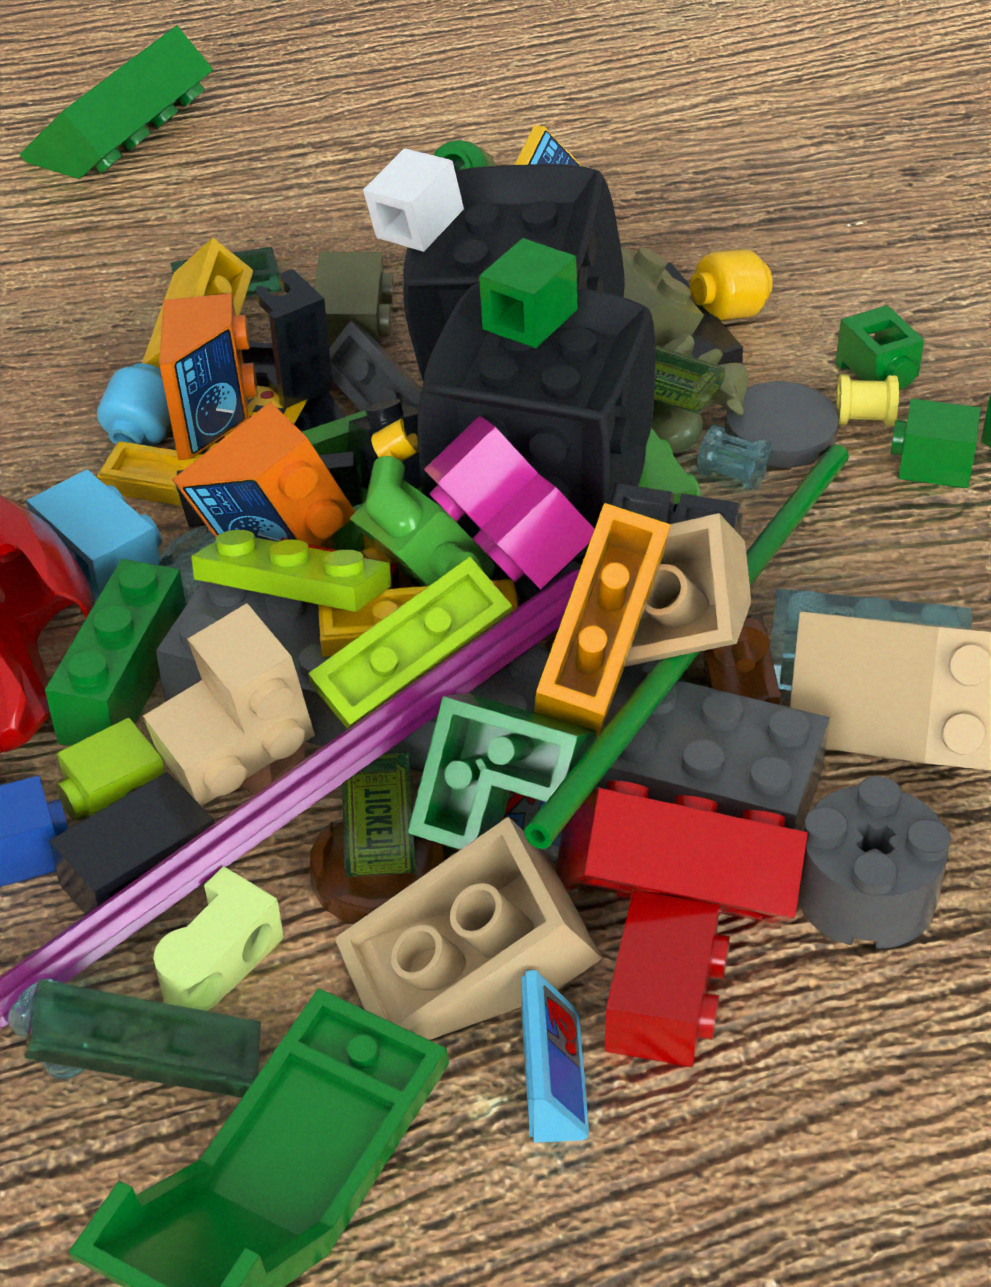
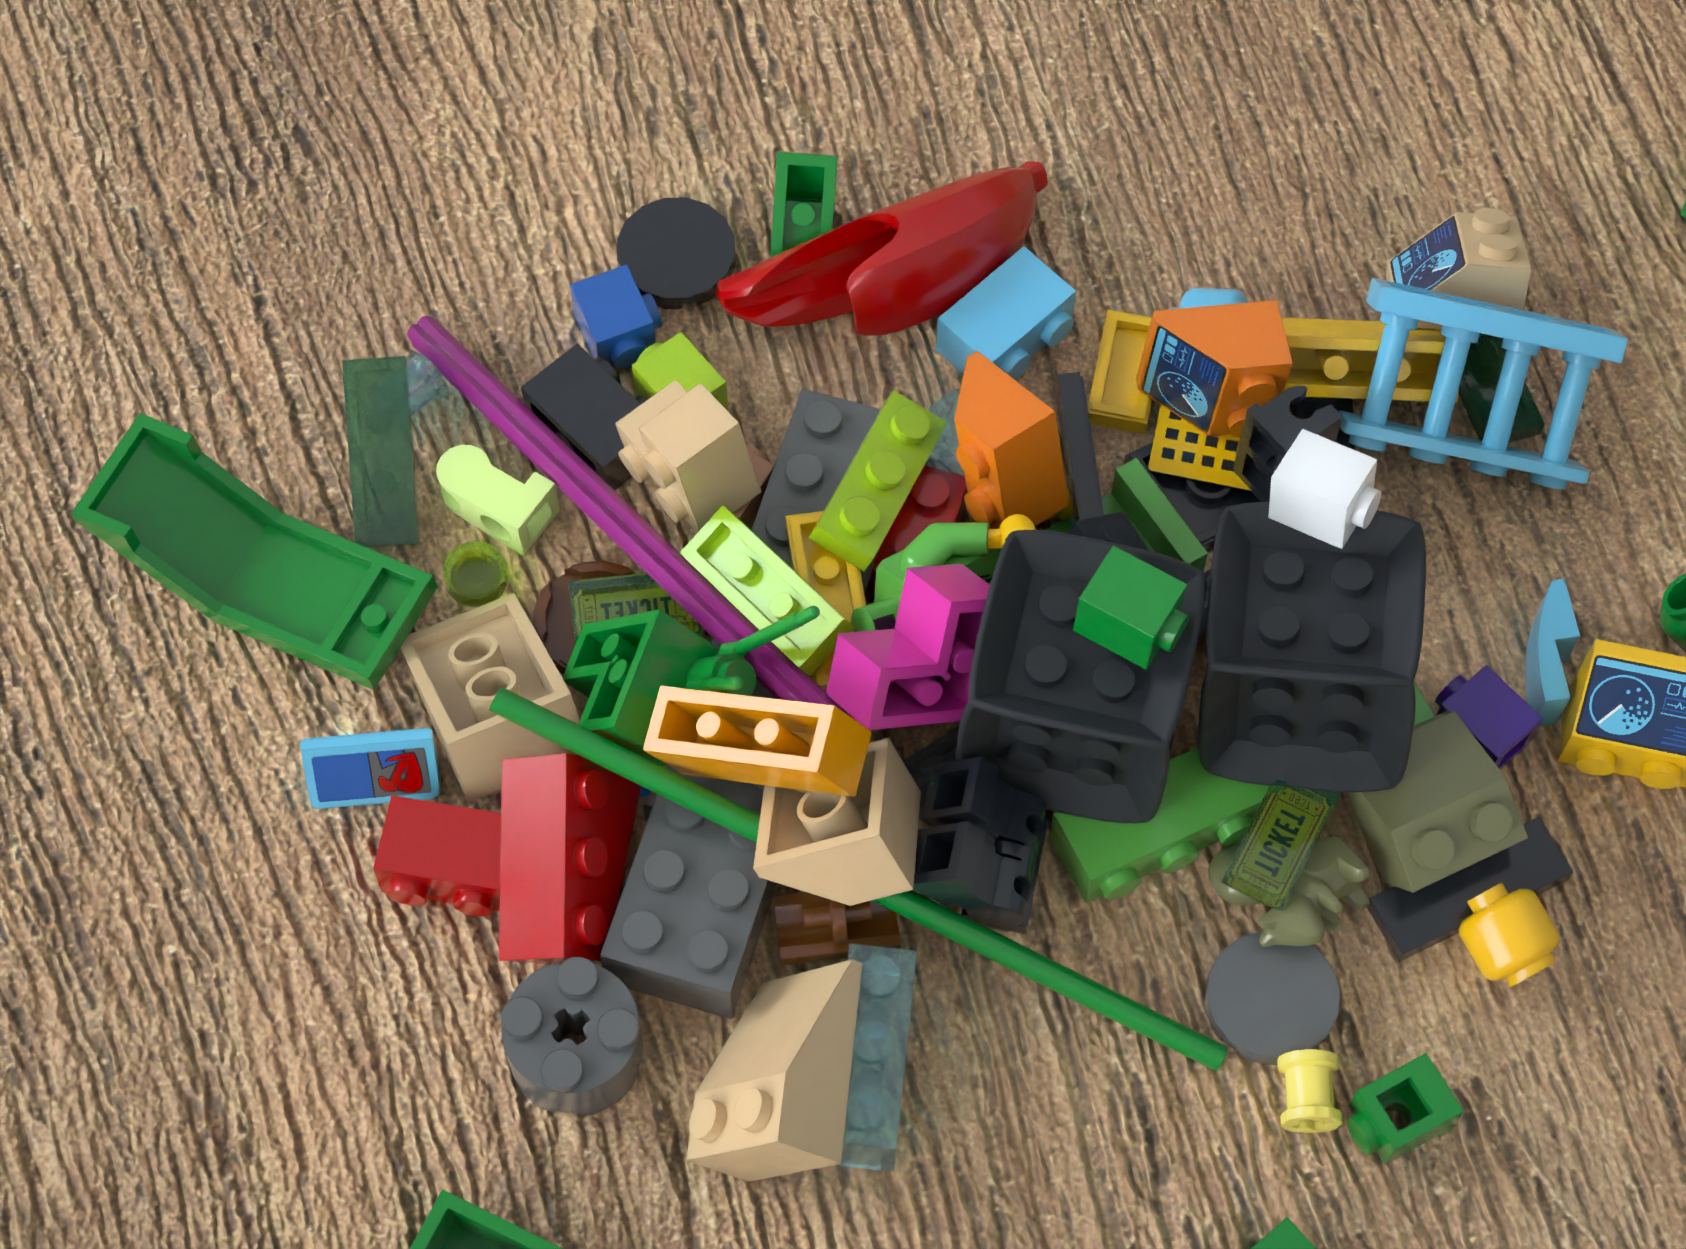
camera: 85 degrees right, 20 degrees up
(114, 655) = (859, 364): green brick -> none
(132, 251) = (1468, 257): none -> tan slope
(203, 222) = (1462, 323): none -> medium azure fence
(301, 968) = (475, 574): none -> clear neon green tile
(355, 291) = (1451, 504): olive brick -> none
(514, 673) = (729, 670): none -> green plant
(733, 457) = (1188, 936): clear light blue bush -> none
(937, 442) = (1234, 1164): green brick -> none

